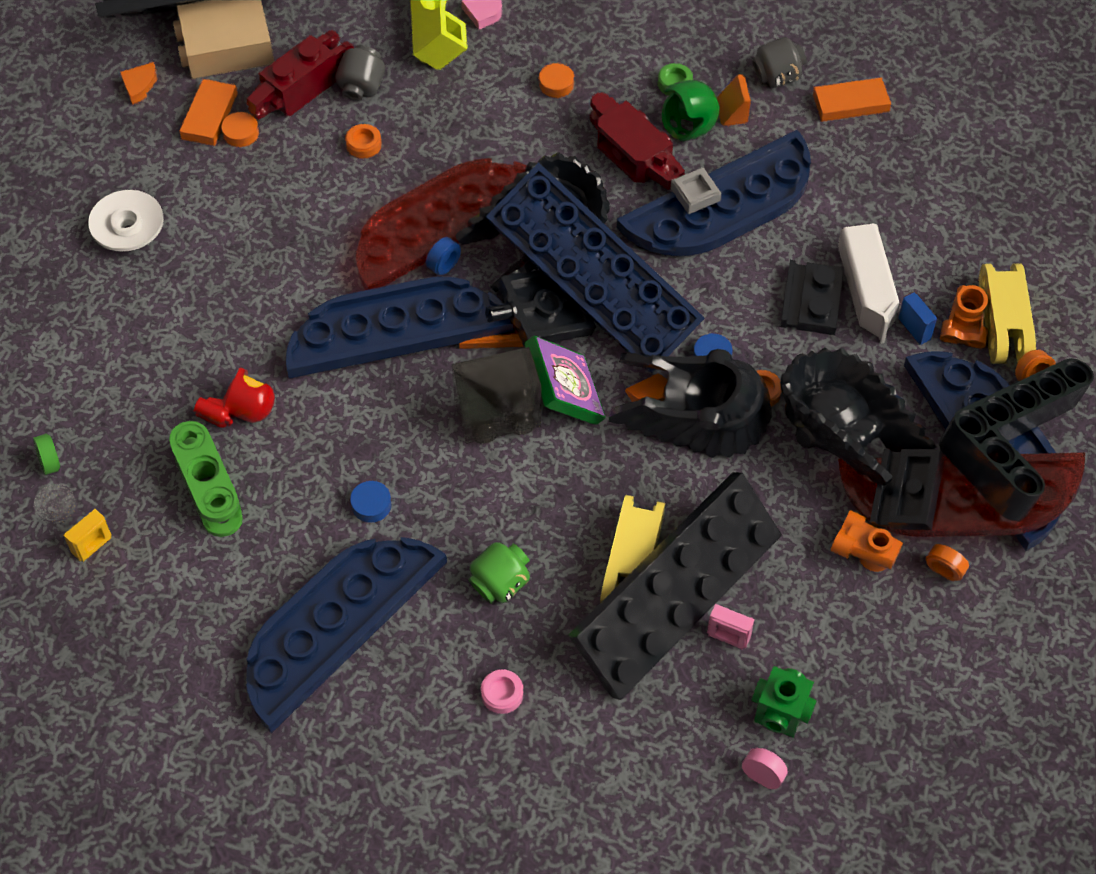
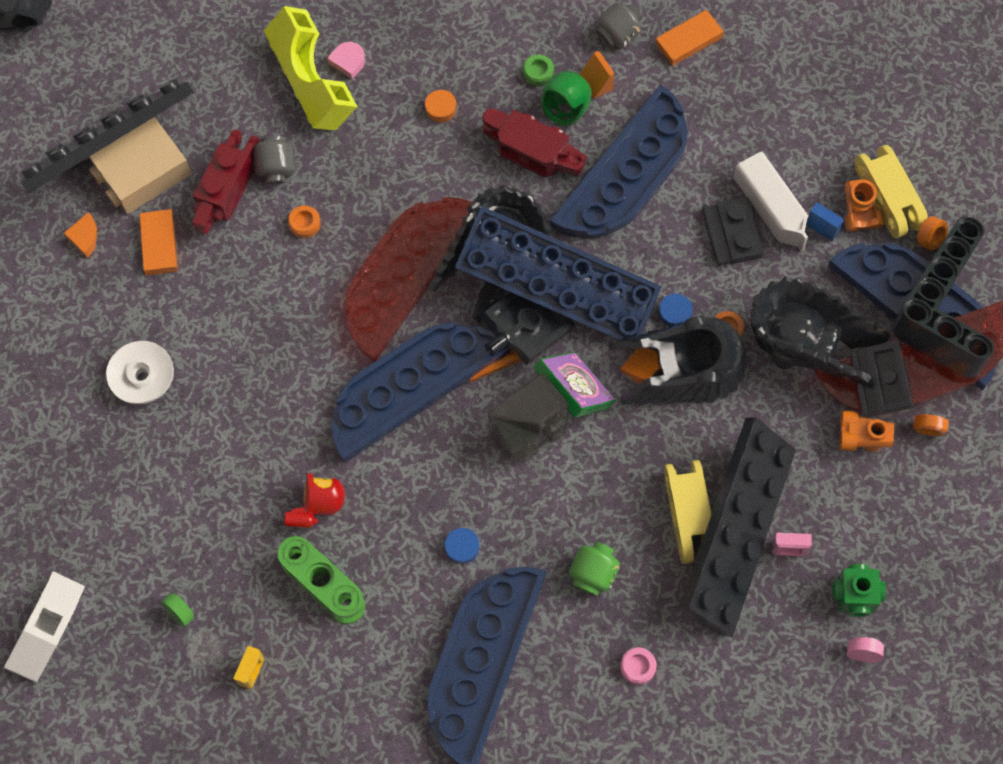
camera: 20 degrees left, 10 degrees up
(240, 129) = (193, 248): orange tile -> none
(443, 256) = (423, 306): blue tile -> none
(695, 190) = (604, 172): light grey tile -> none

